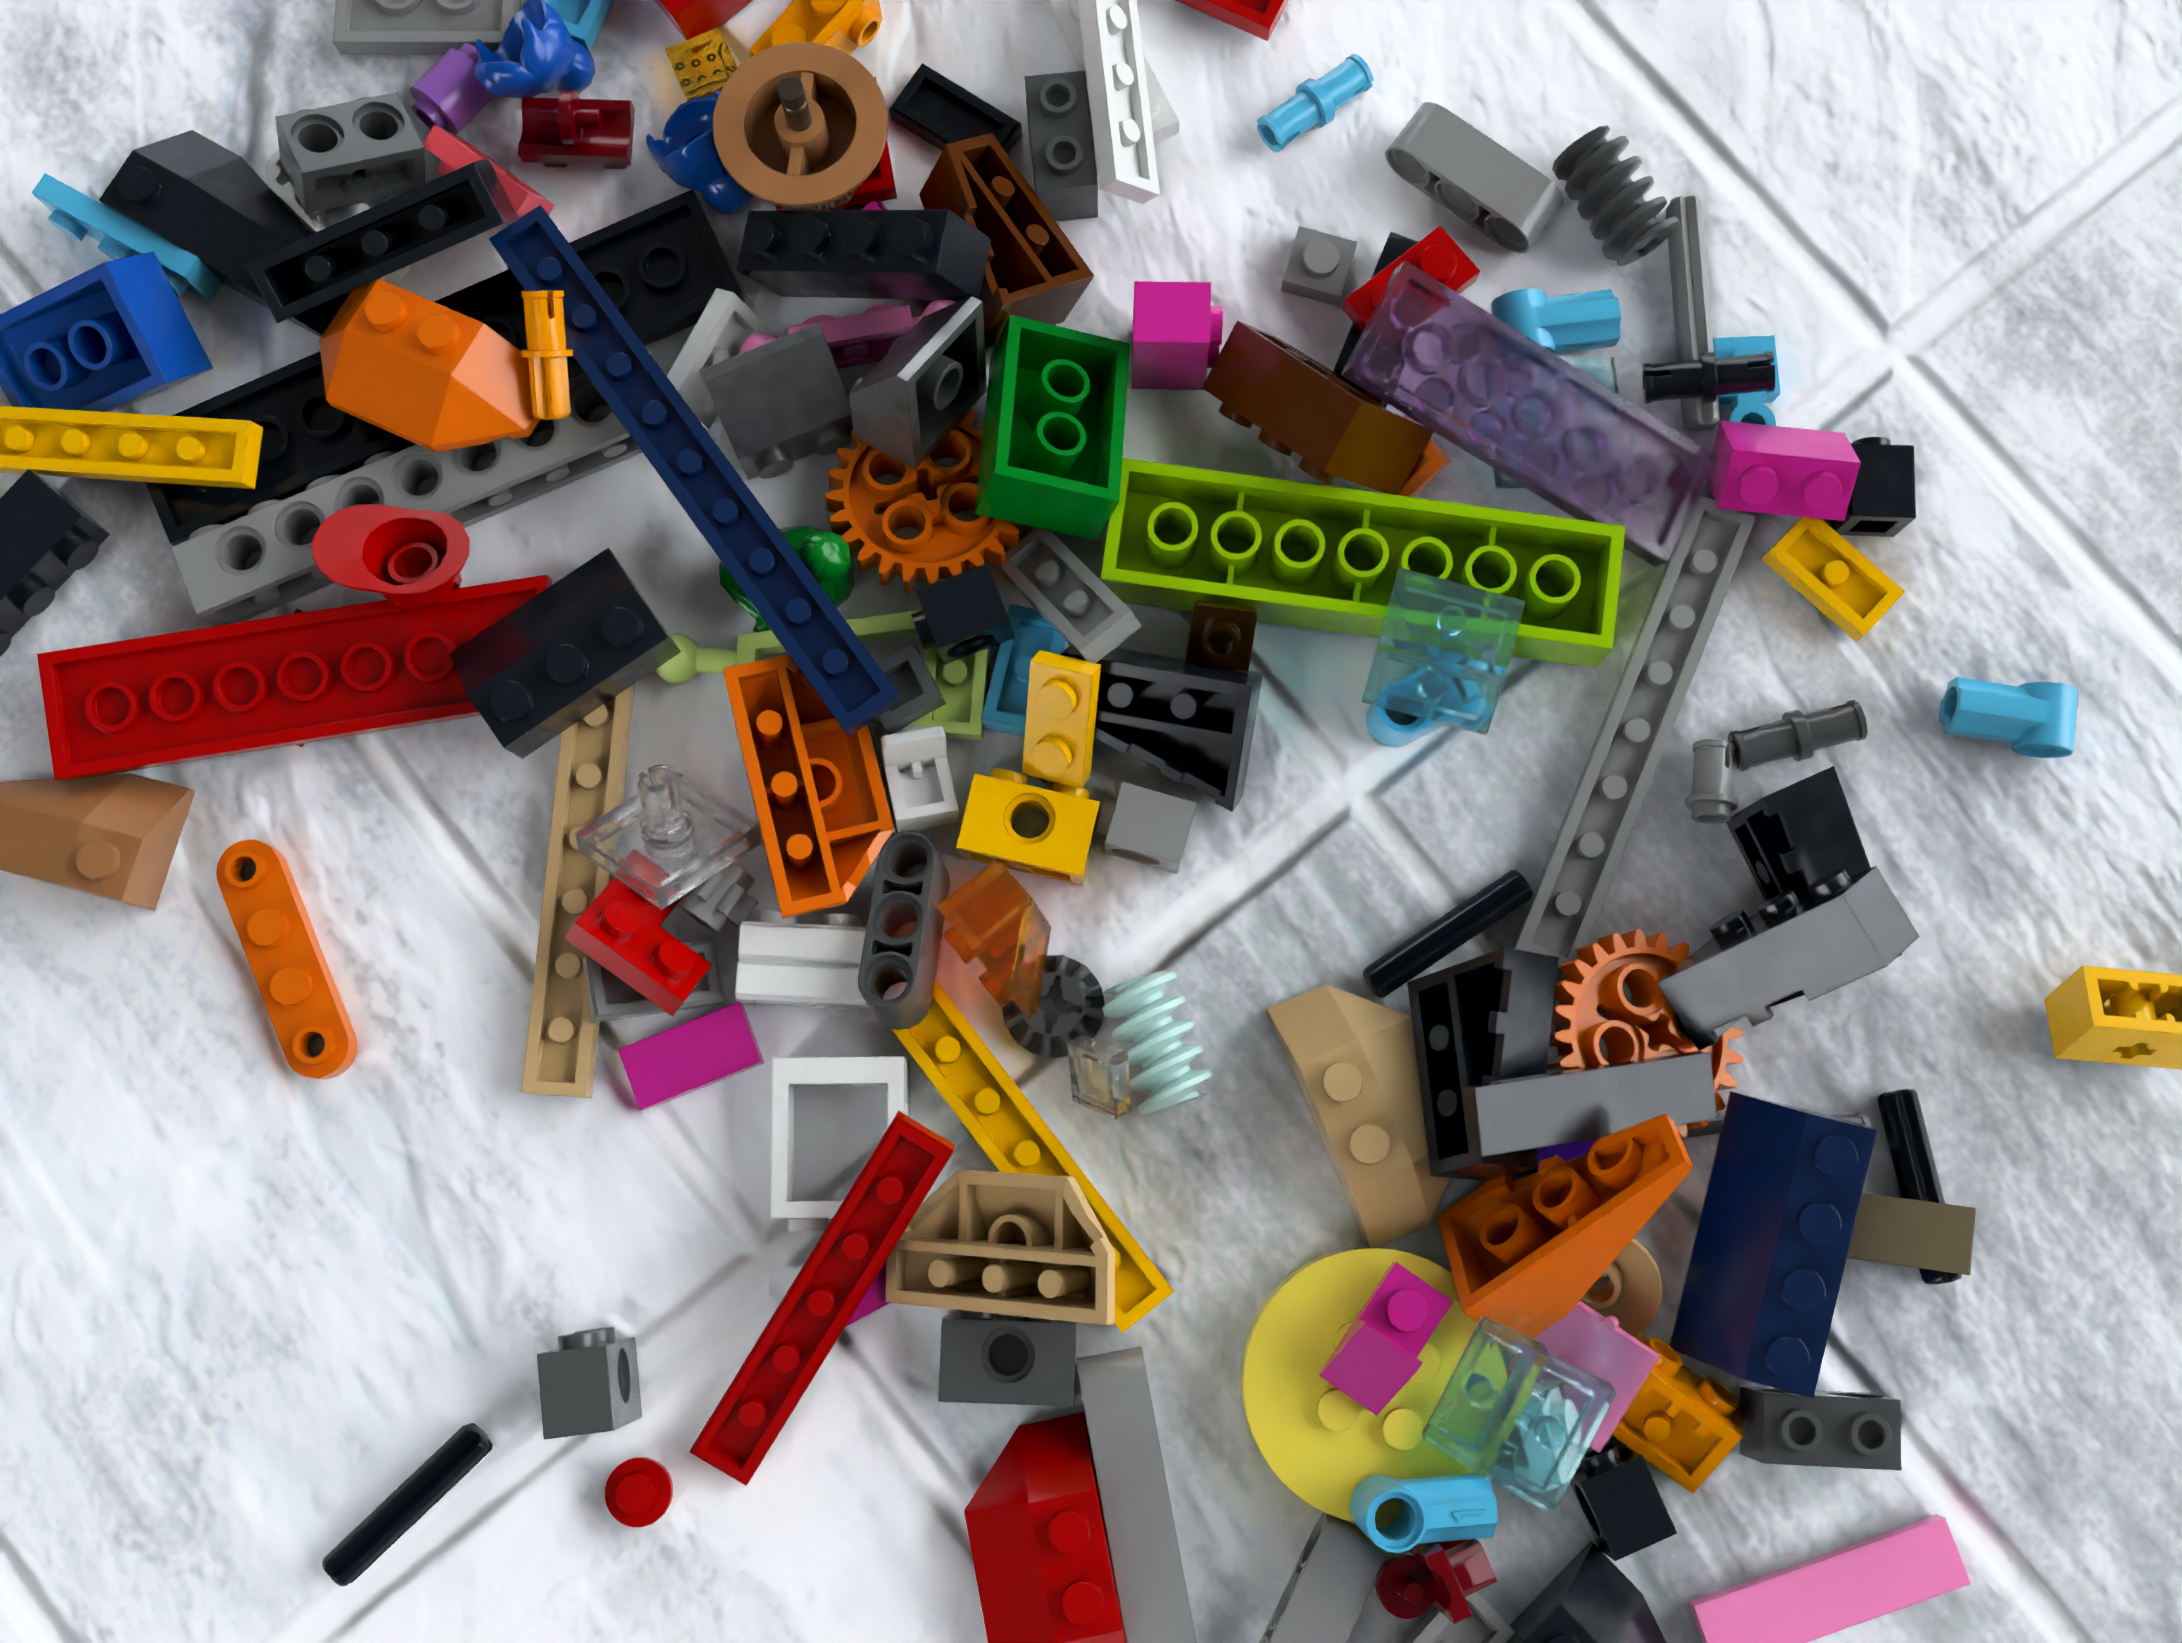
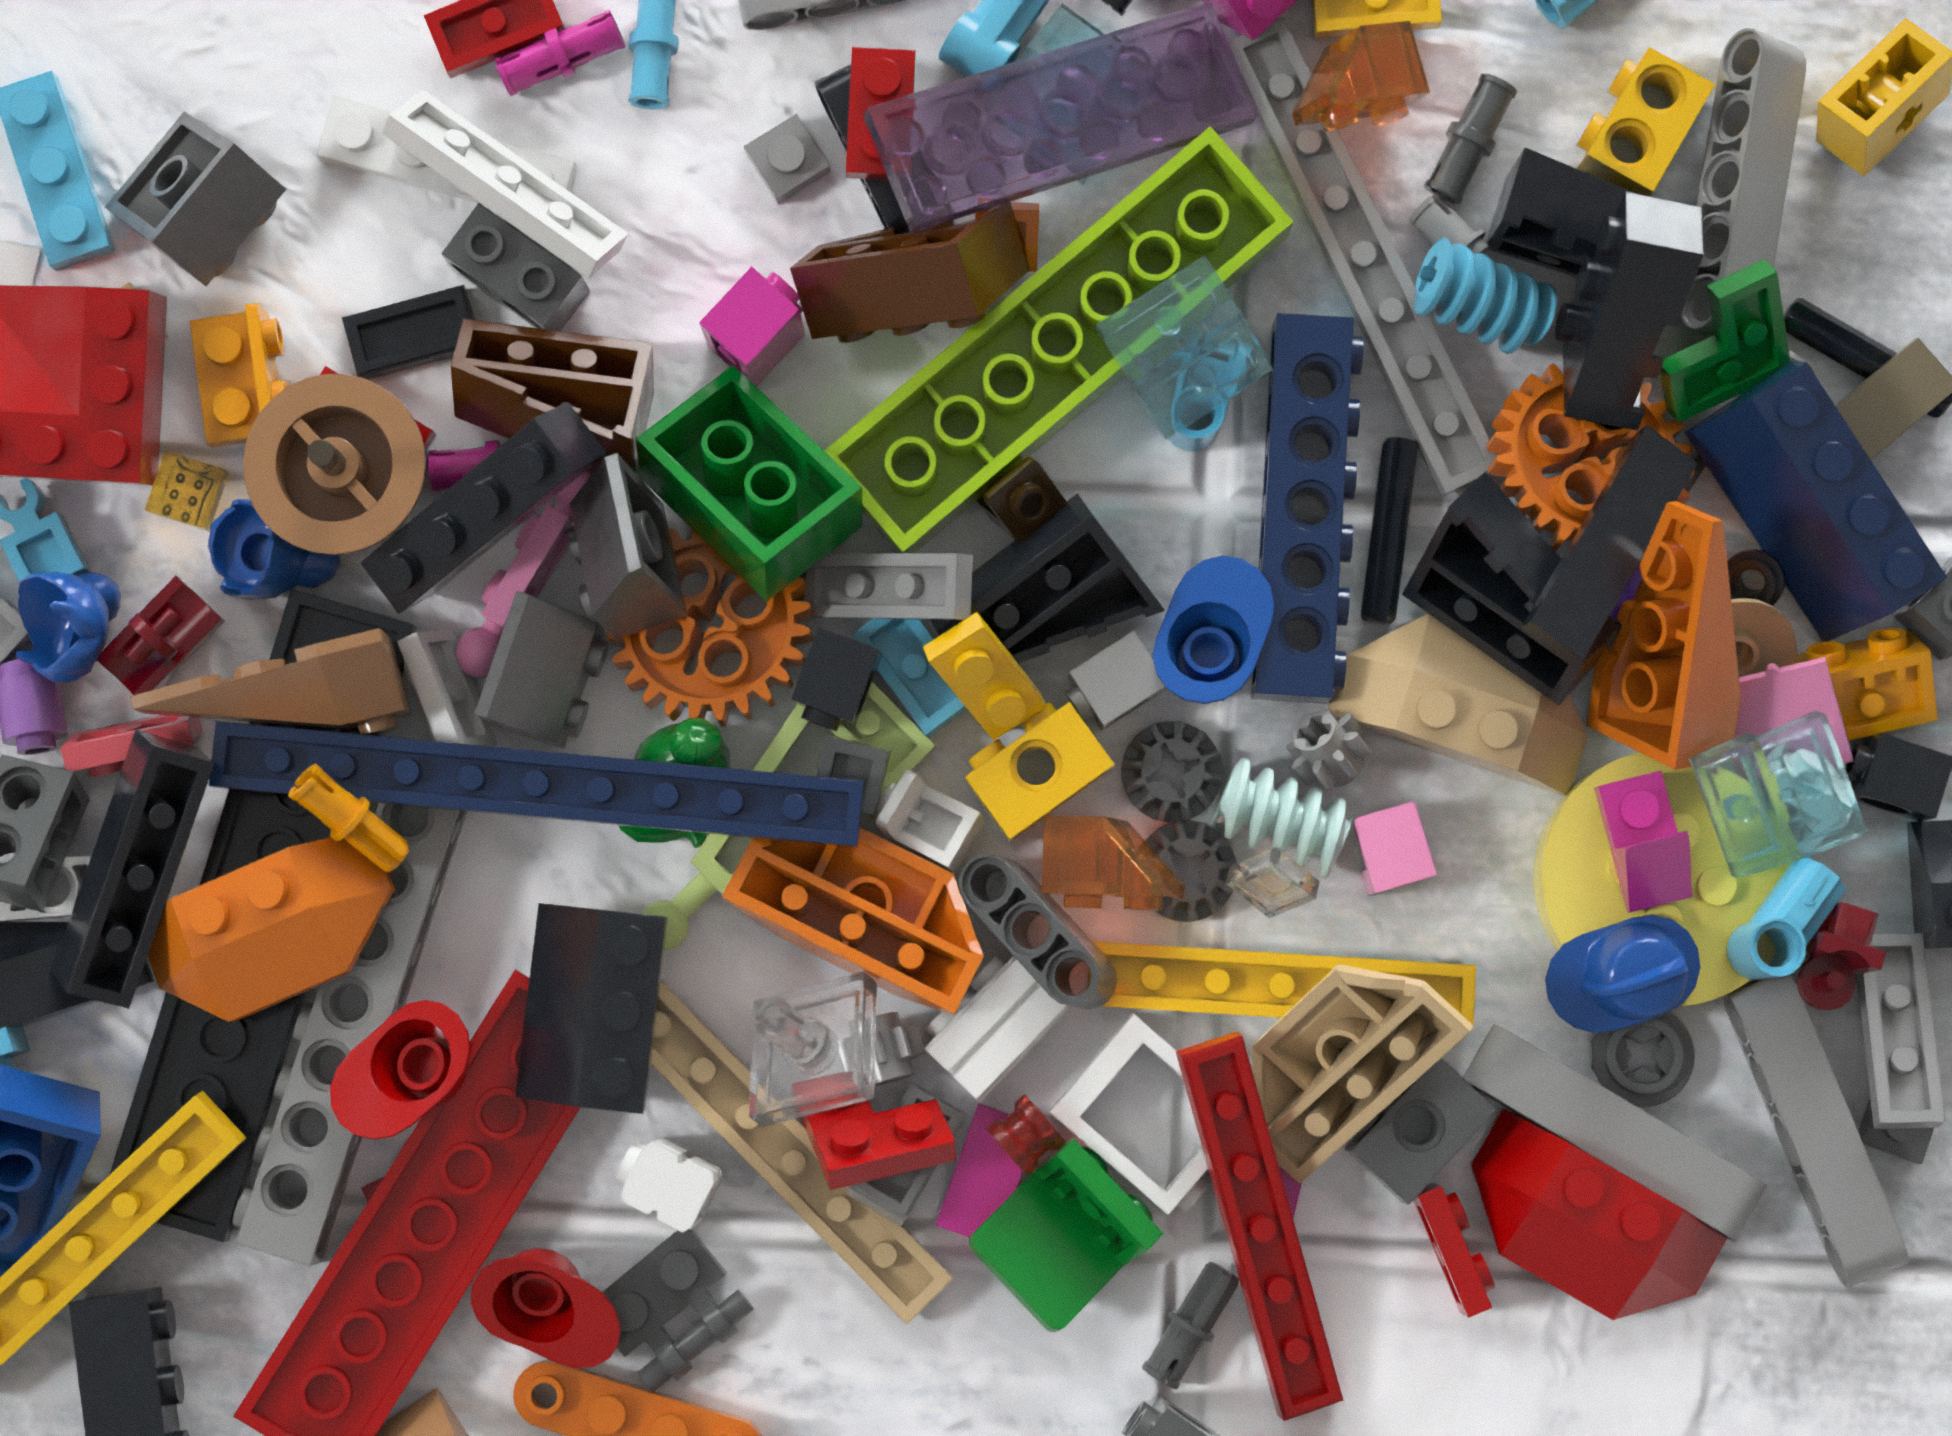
camera: 50 degrees left, 5 degrees up
(310, 810) = (546, 1308): none -> red piece
(397, 887) = (660, 1288): none -> dark grey plate
(475, 820) = (668, 1182): none -> white brick
(636, 254) = (330, 686): none -> medium nougat wedge
(686, 1152) = (1063, 1235): none -> green bracket
(705, 1313) = (1191, 1324): none -> dark grey axle
(740, 1055) = (1026, 1135): none -> clear red wheel
(926, 1496) = (1465, 1273): none -> red plate
(1128, 958) = (1157, 798): none -> dark grey gear
(1207, 1146) = (1393, 848): none -> bright pink panel
(1239, 1030) = (1328, 749): none -> light grey gear
(1242, 1511) = (1643, 1087): none -> dark grey gear
(1248, 47) = (560, 52): none -> dark pink pin
(1250, 862) = (1214, 630): none -> blue piece
(1268, 1414) = (1623, 974): none -> blue piece
(1523, 743) = (1298, 346): none -> dark blue brick
(1686, 1239) = (1766, 565): none -> black plate
(1691, 843) = (1483, 297): none -> medium azure piece
(1769, 614) = (1363, 76): none -> clear orange slope
(1835, 1078) = (1744, 350): none -> green plate
(1933, 863) = (1651, 130): none -> yellow brick
(1958, 970) = (1746, 161): none -> light grey beam

